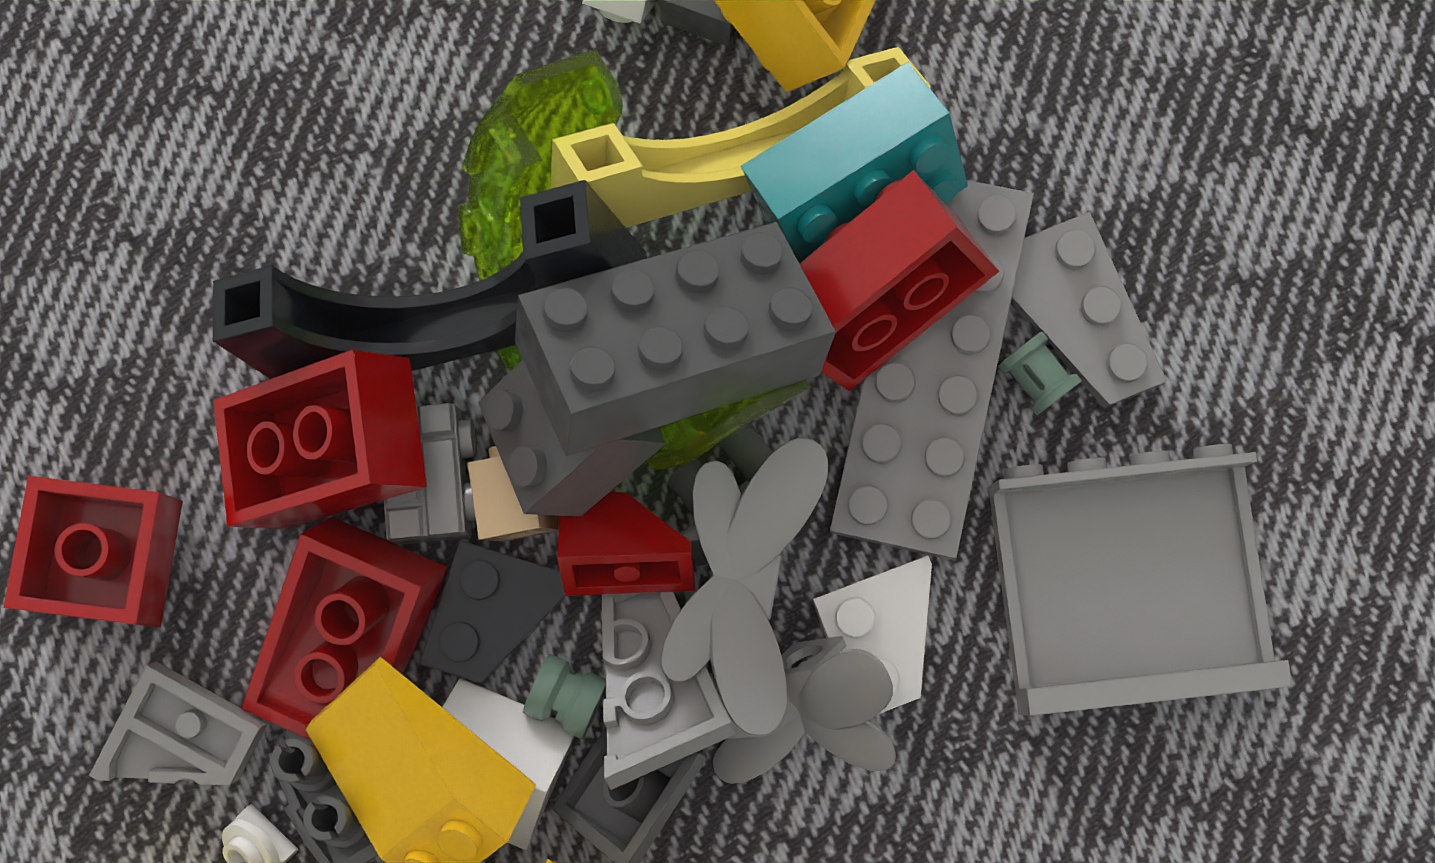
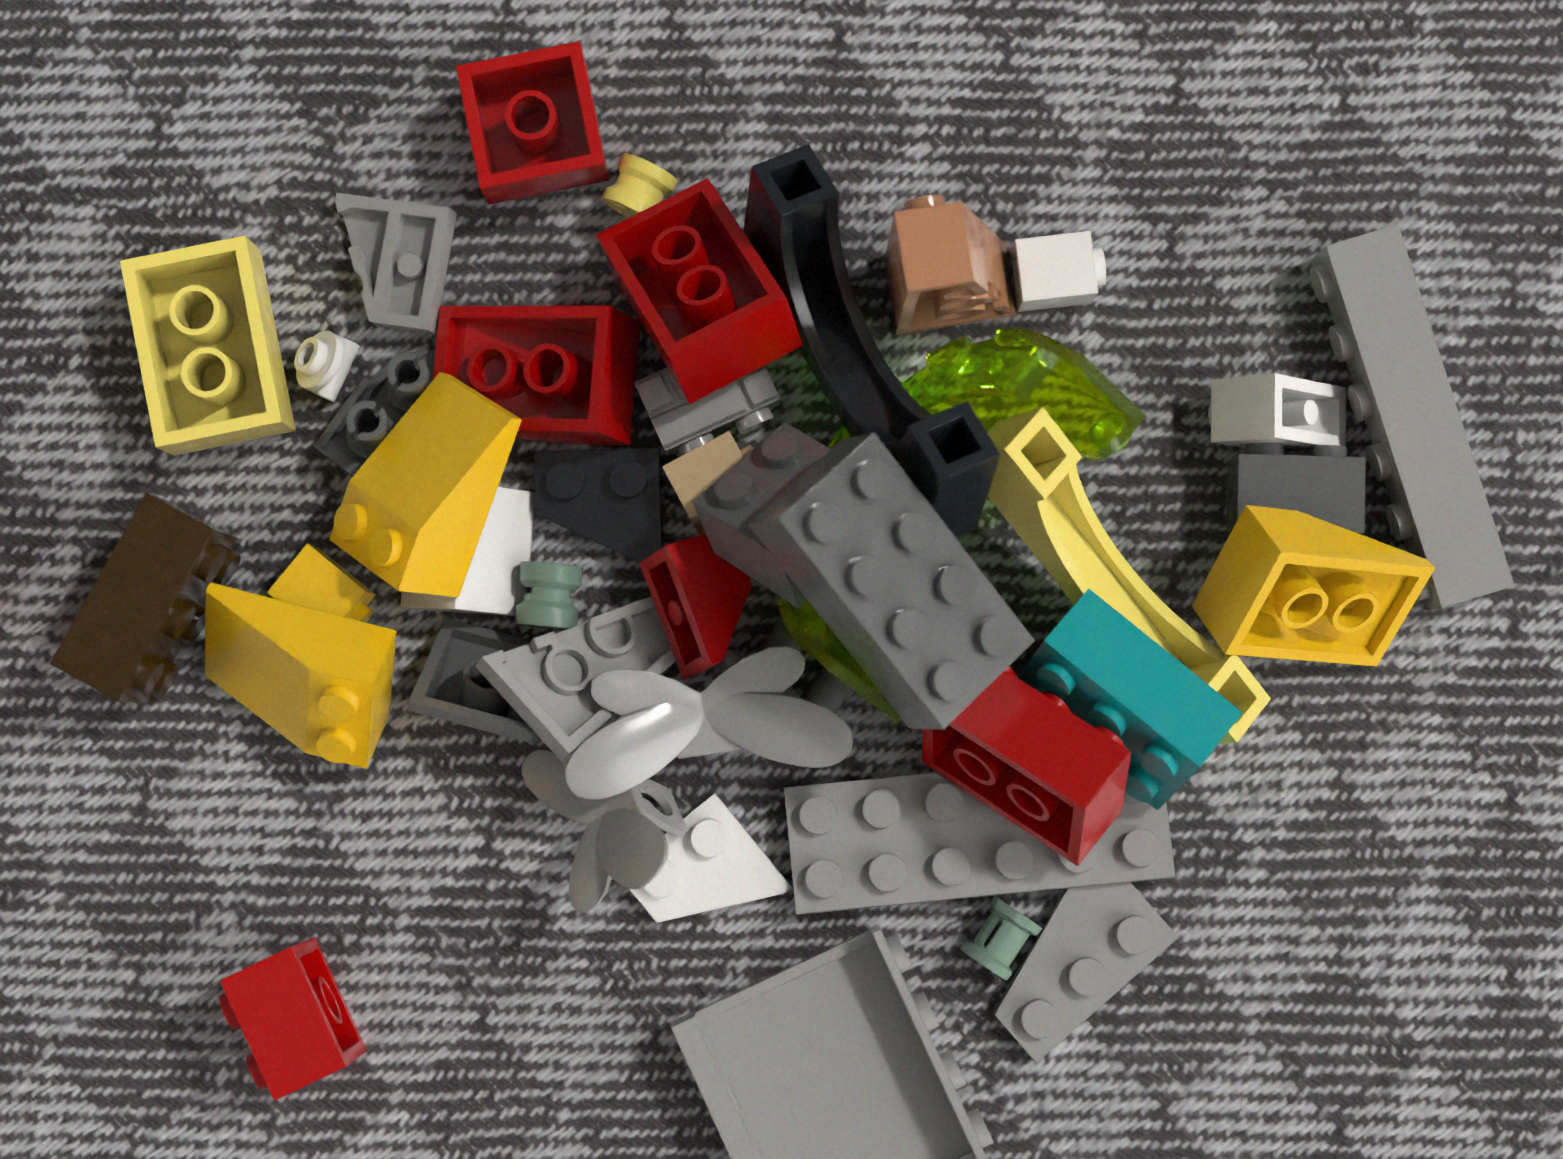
camera: 75 degrees right, 5 degrees up
(197, 473) = (638, 186): none -> light yellow wheel
(381, 203) = (945, 267): none -> nougat wedge
(428, 110) = (1056, 271): none -> white brick

